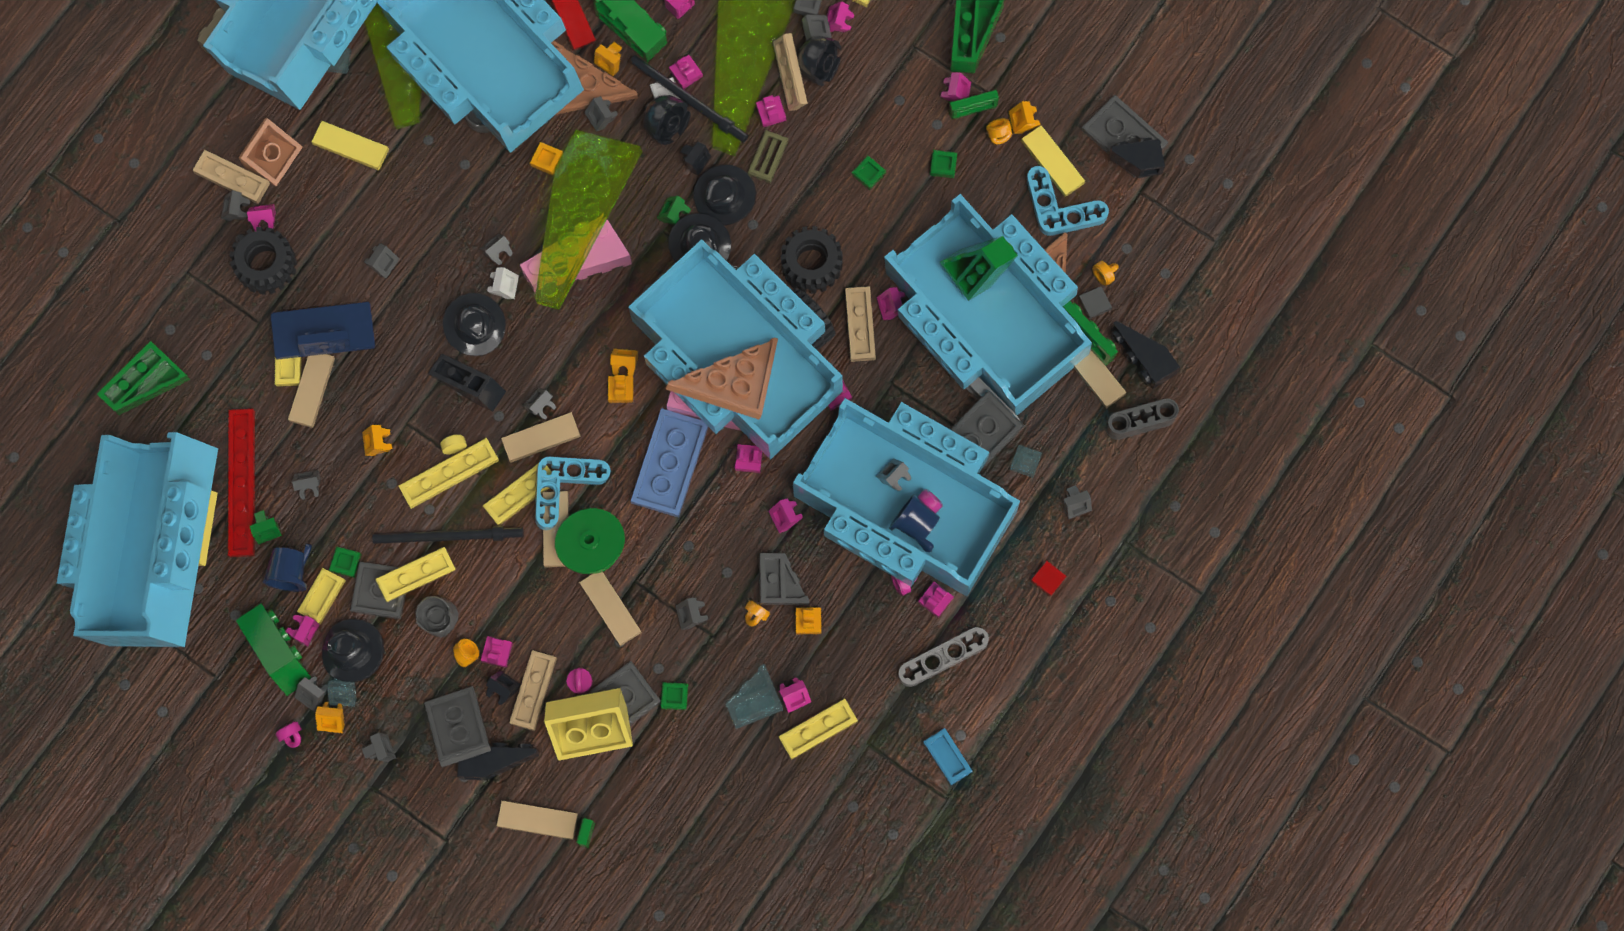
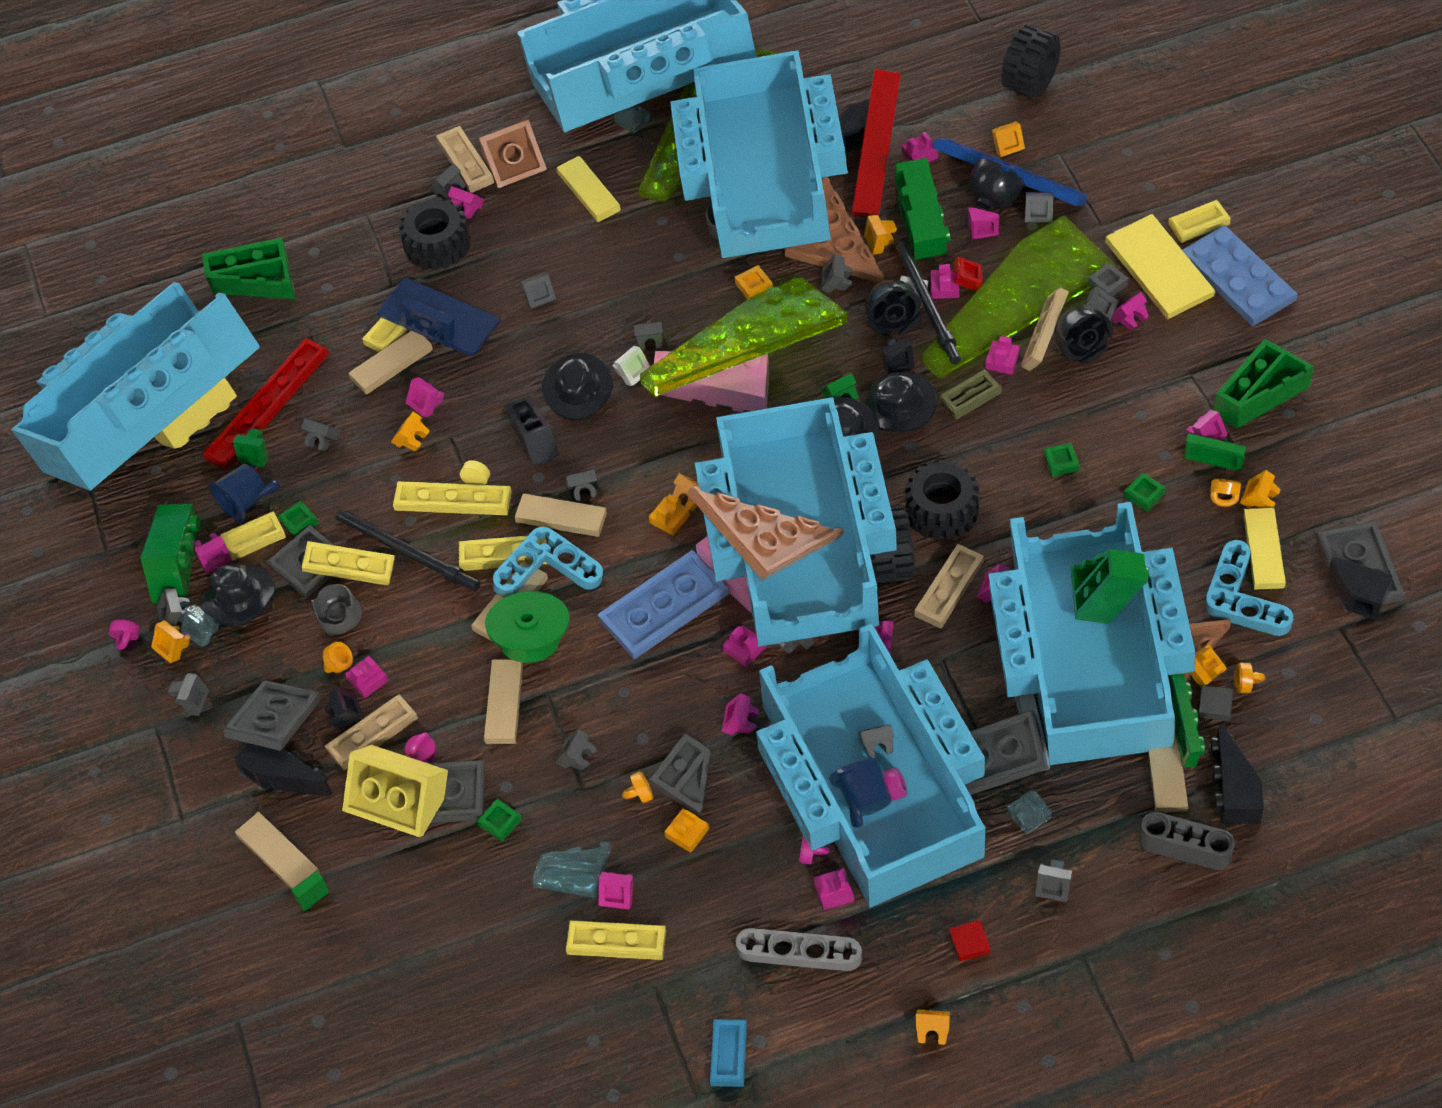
camera: 40 degrees right, 20 degrees down
(363, 405) = (423, 397): none -> dark pink tile
(698, 54) = (967, 273): none -> red tile
(1064, 650) = (932, 1020): none -> light orange tile
(1078, 276) = (1207, 666): none -> light orange tile

